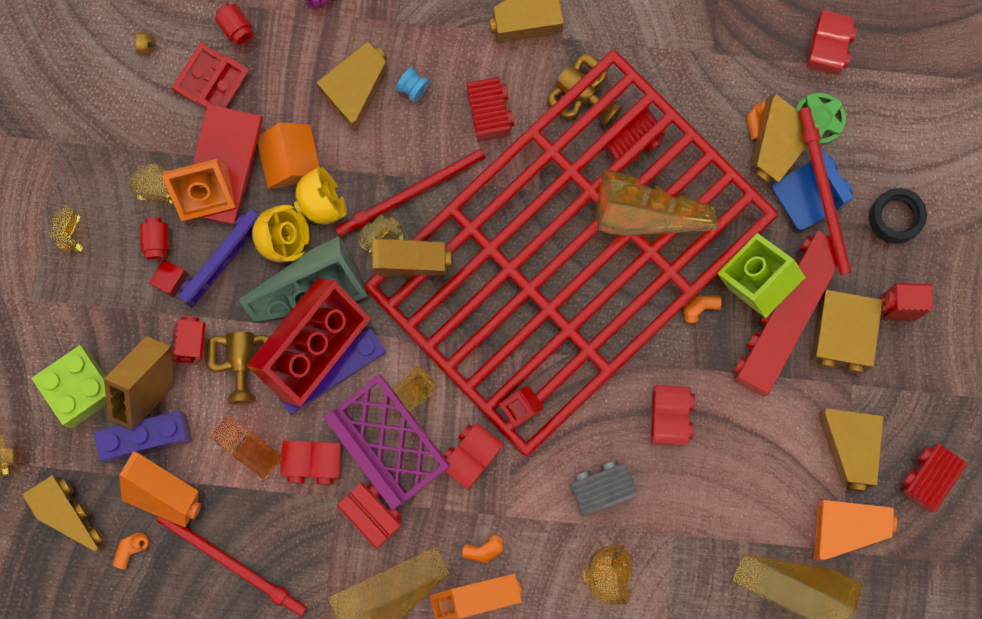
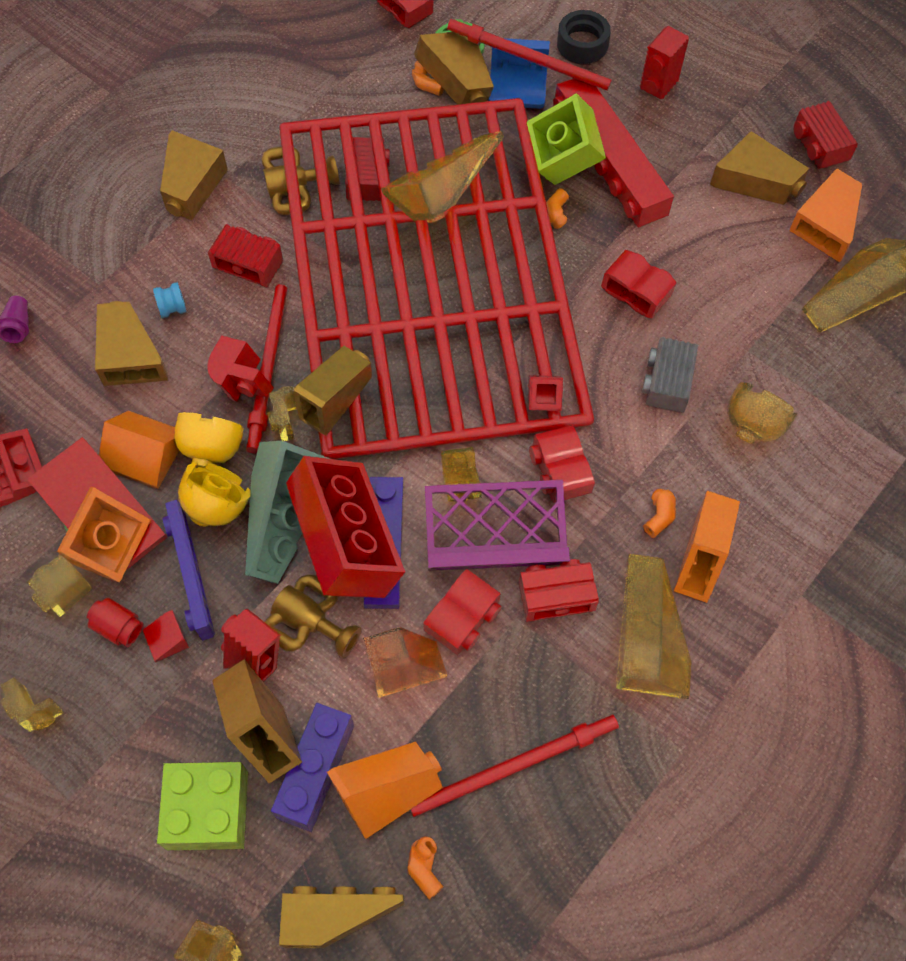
camera: 55 degrees left, 15 degrees down
(384, 172) = (234, 369): none -> red brick
(846, 331) = (658, 120): pearl gold brick -> none

